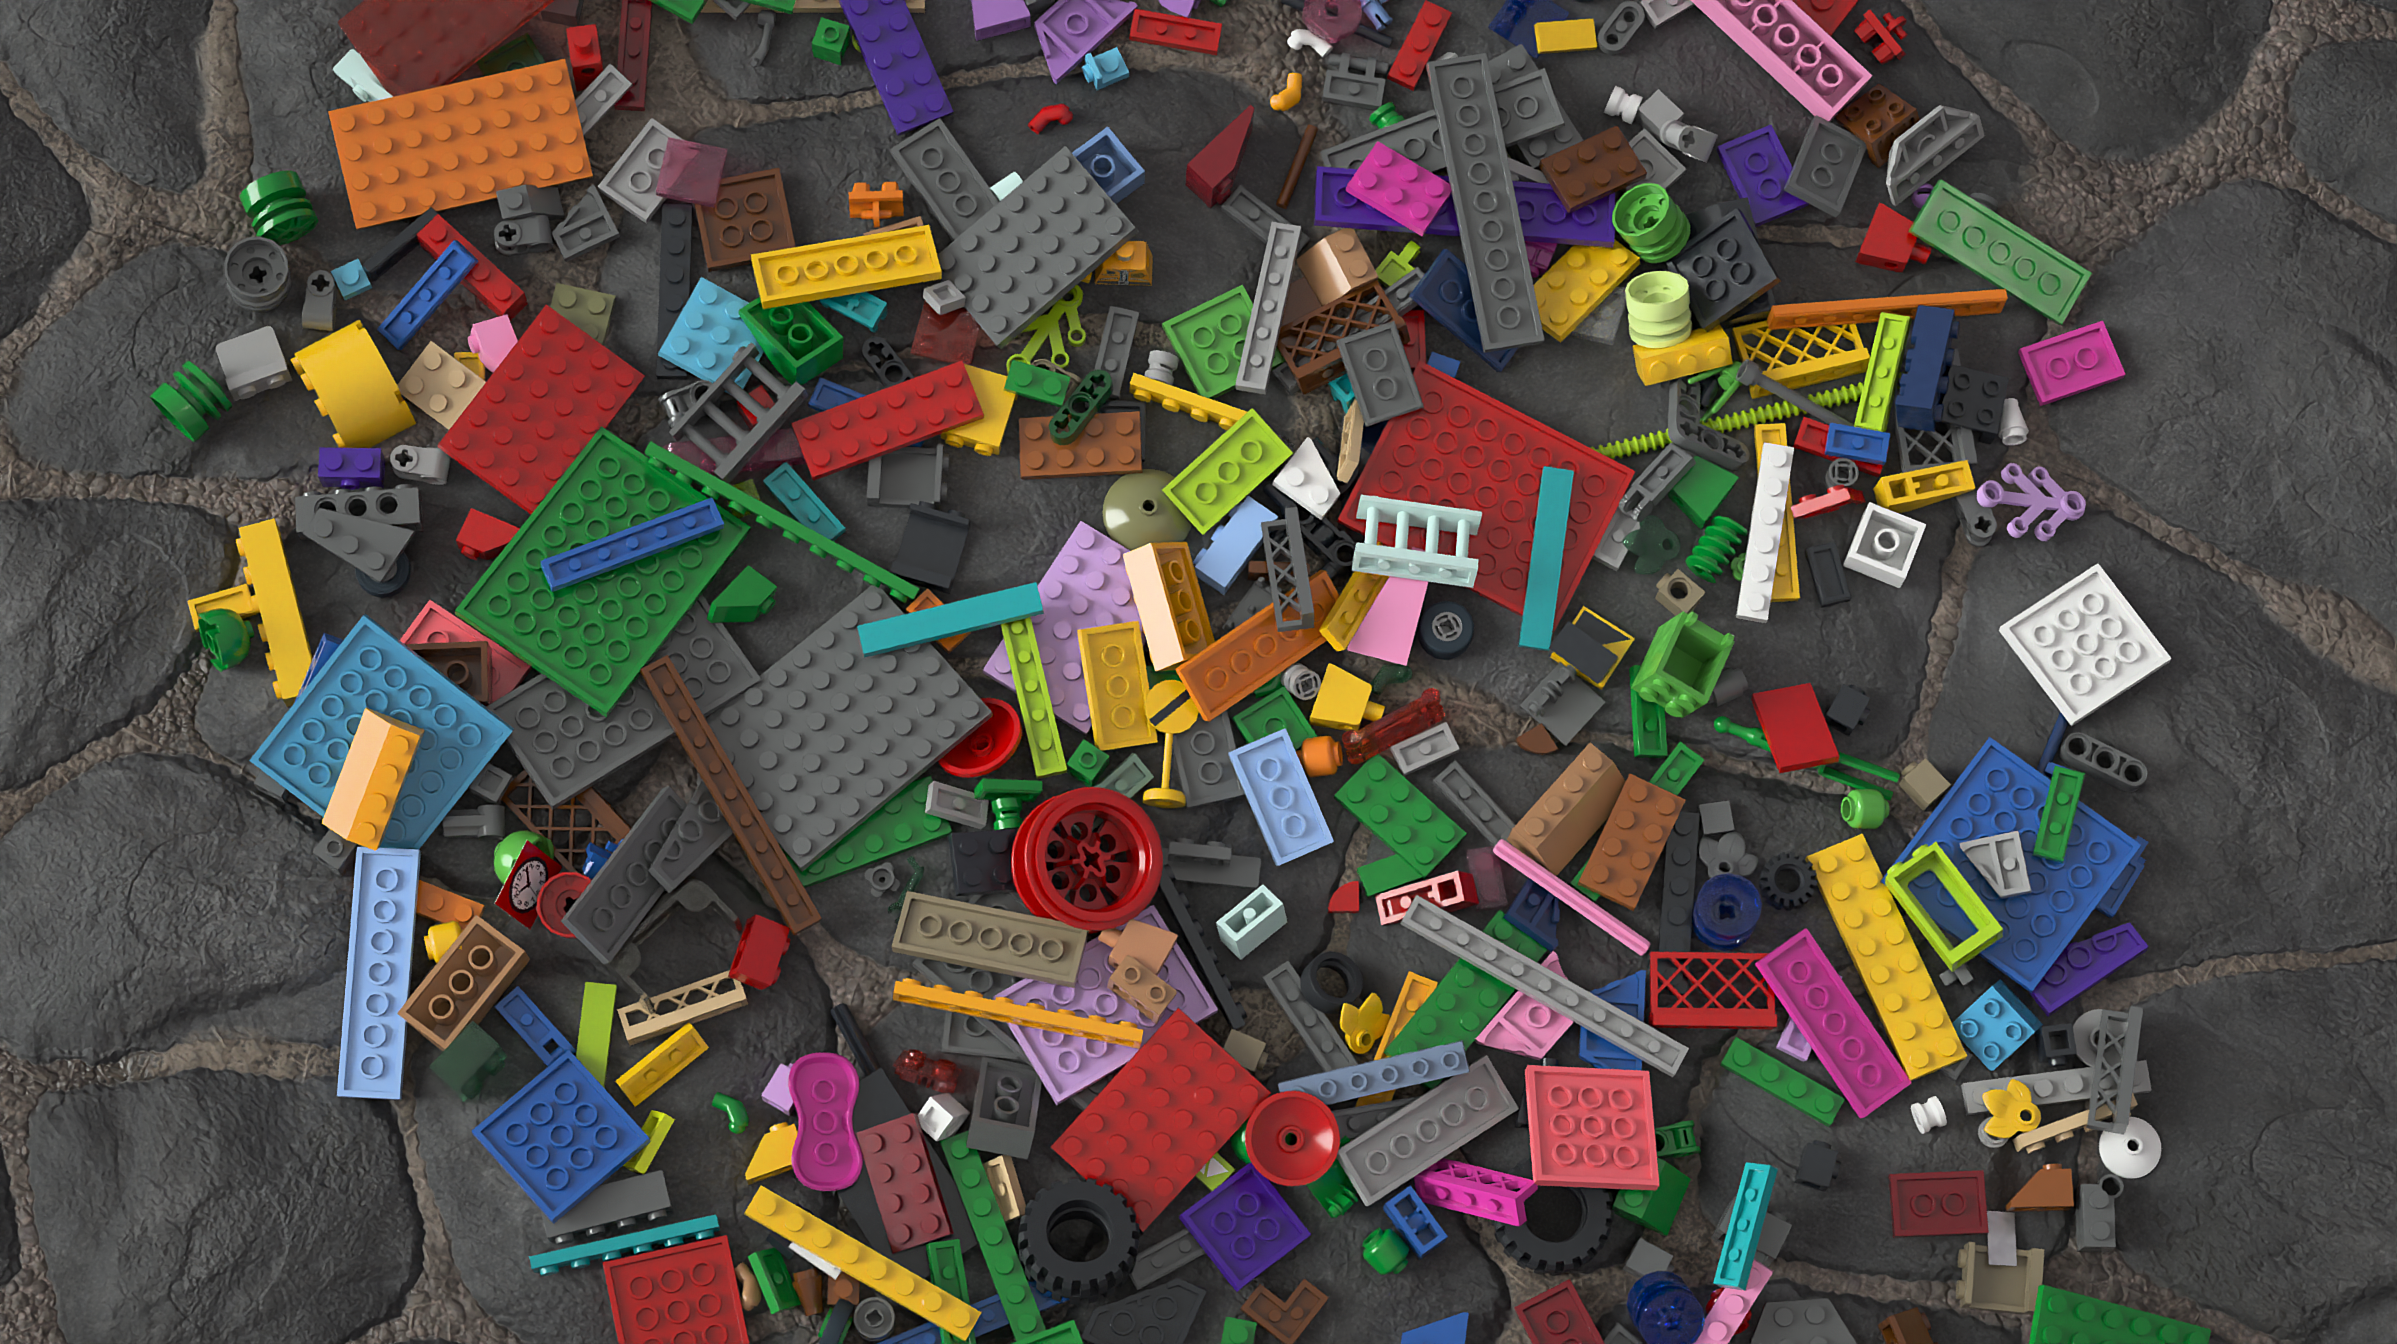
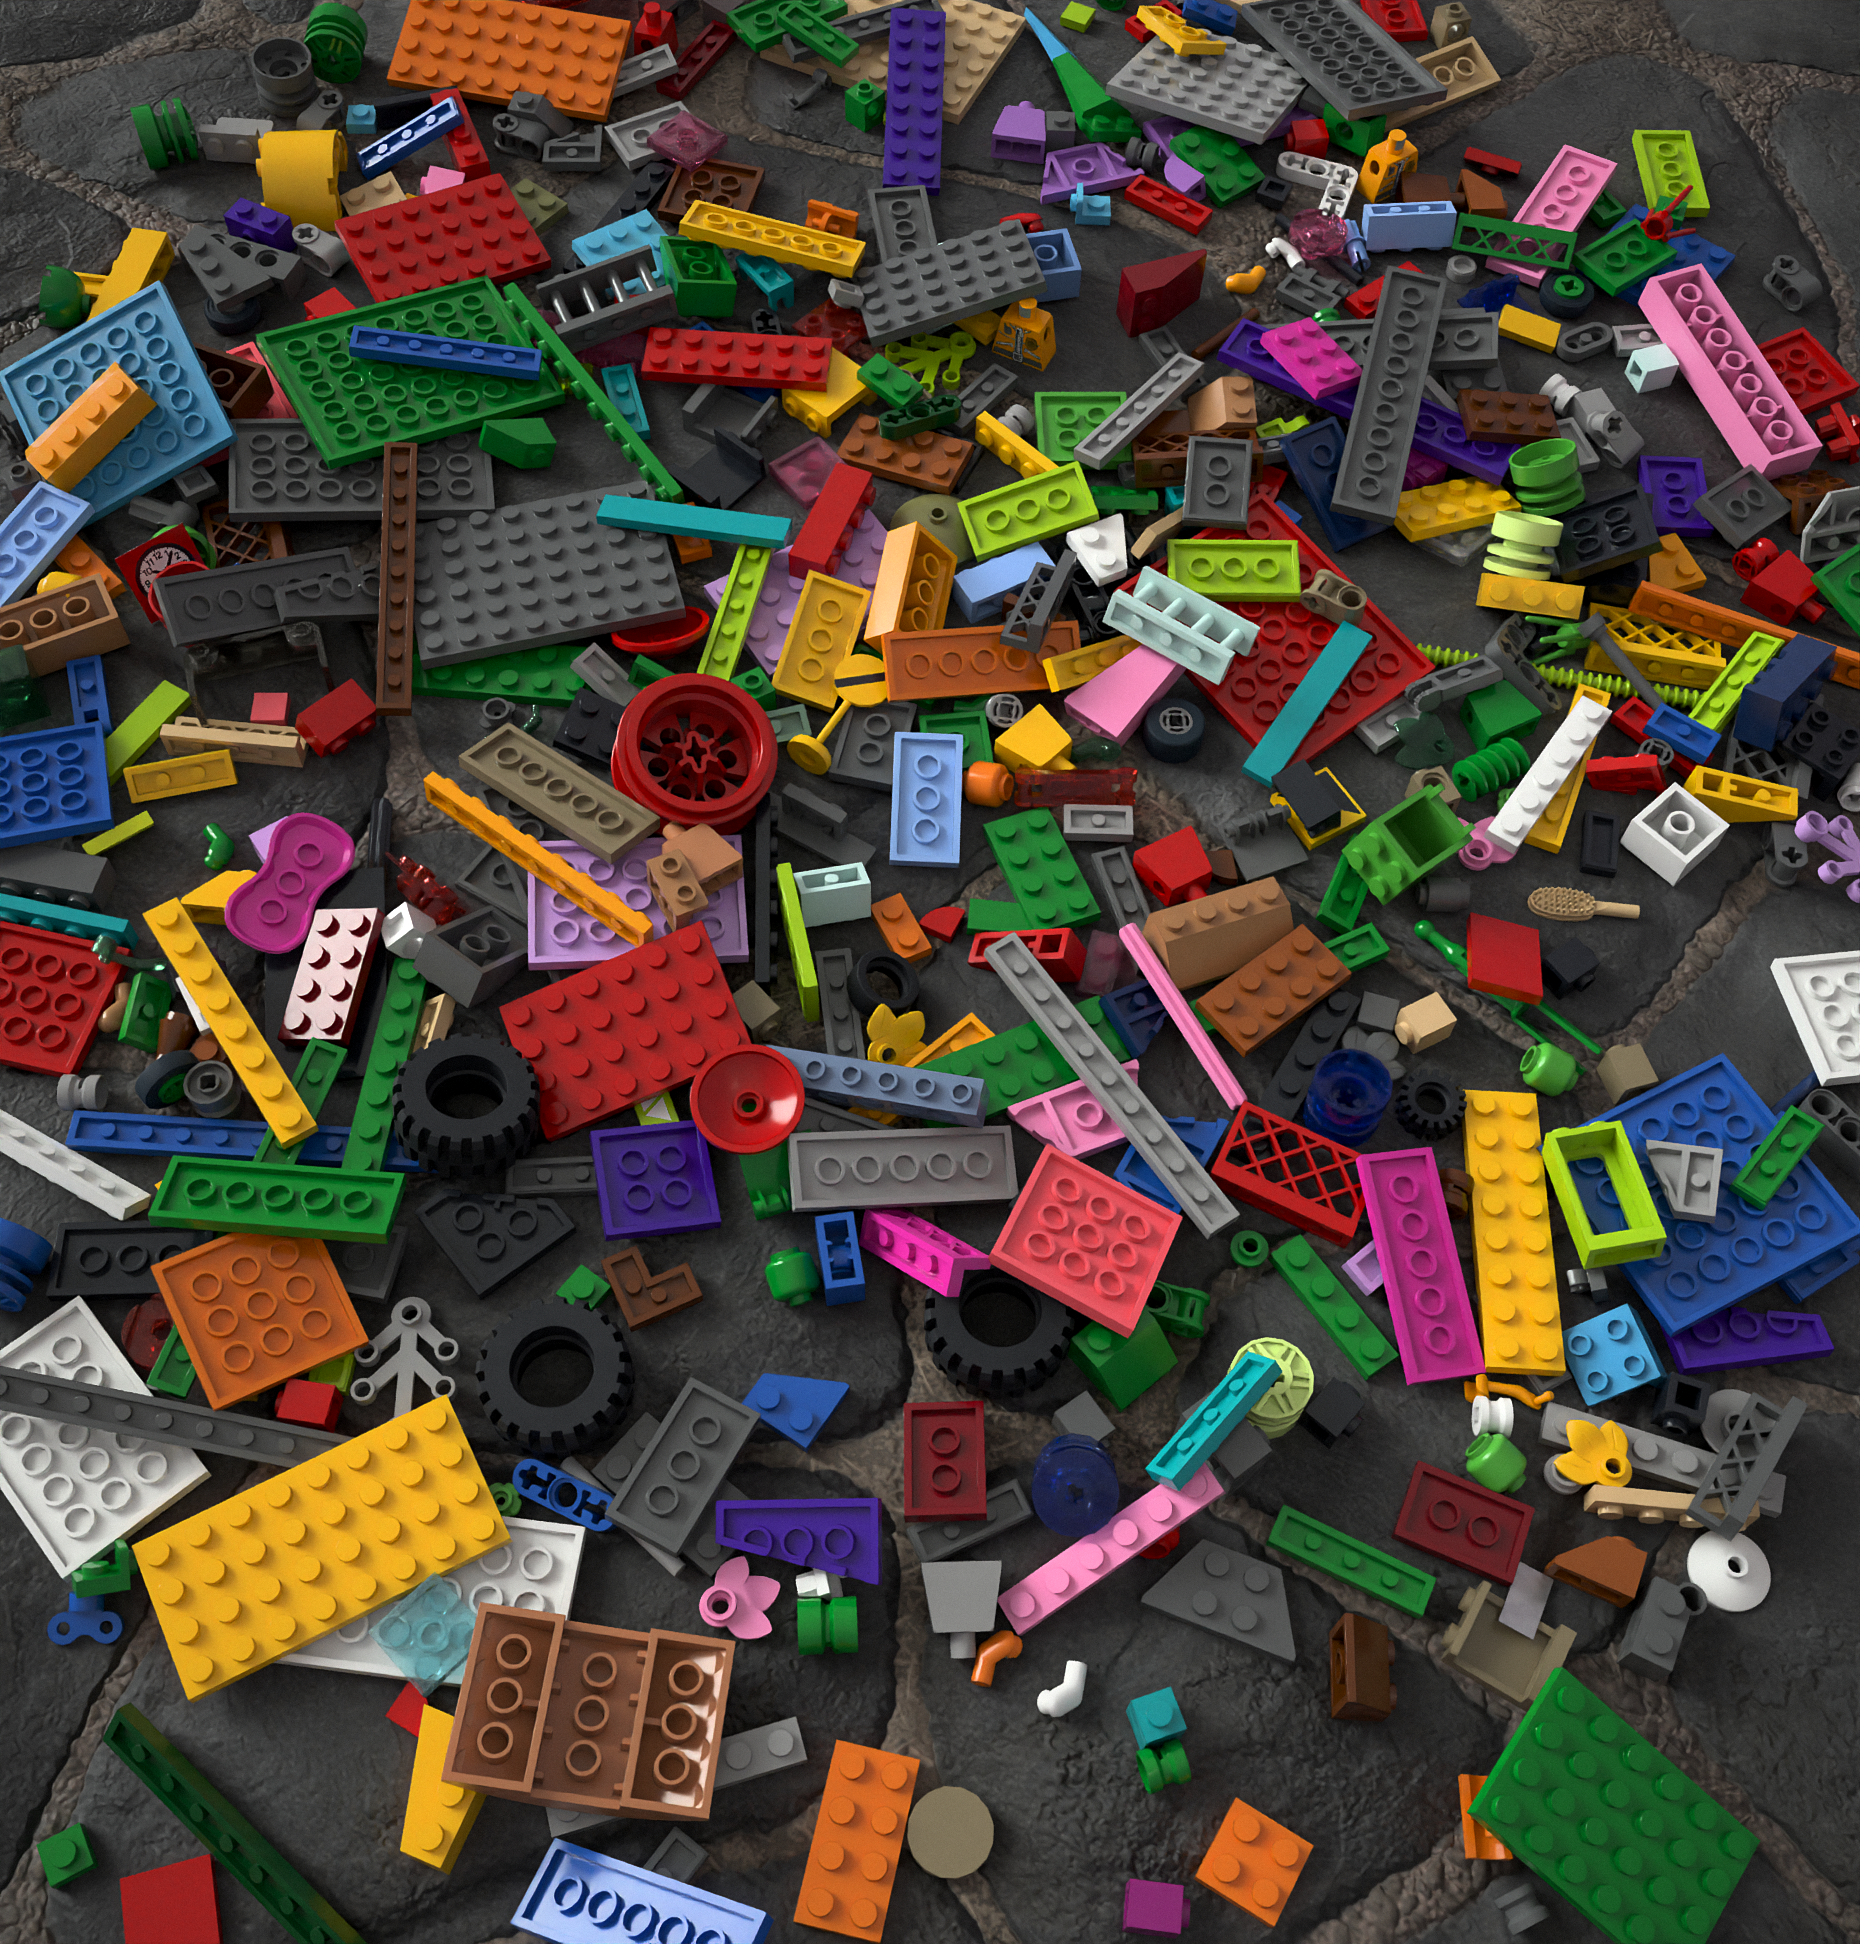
camera: 30 degrees right, 15 degrees down
(690, 965) = (270, 708): none -> coral tile
(713, 1247) = (107, 947): none -> clear green piece
(1010, 504) = (805, 470): none -> clear pink plate
(1066, 562) = (832, 522): none -> red brick
(1249, 979) = (798, 942): none -> lime tile
(1296, 413) = (1111, 498): none -> green plate
(1315, 921) = (900, 928): none -> orange plate
(1431, 455) = (1236, 569): none -> lime tile
(1508, 765) = (1174, 868): none -> red torso
(1525, 448) = (1334, 598): none -> dark tan piece
(1692, 34) = (1651, 368): none -> light aqua brick
(1697, 1073) = (1245, 1258): none -> green plate
(1724, 620) = (1483, 848): none -> bright pink plate
(1755, 813) = (1424, 1023): none -> tan brick
(1768, 1152) = (1282, 1404): none -> yellowish green wheel
(1788, 255) = (1674, 566): none -> light orange wing
(1829, 643) = (1575, 906): none -> tan piece
(1834, 948) = (1456, 1187): none -> reddish brown wheel
(1853, 219) = (1755, 558): none -> red wheel
(1873, 1269) = (1351, 1562): none -> green plate
(1912, 1093) = (1483, 1387): none -> light orange piece
(1944, 1149) = (1496, 1463): none -> bright green head

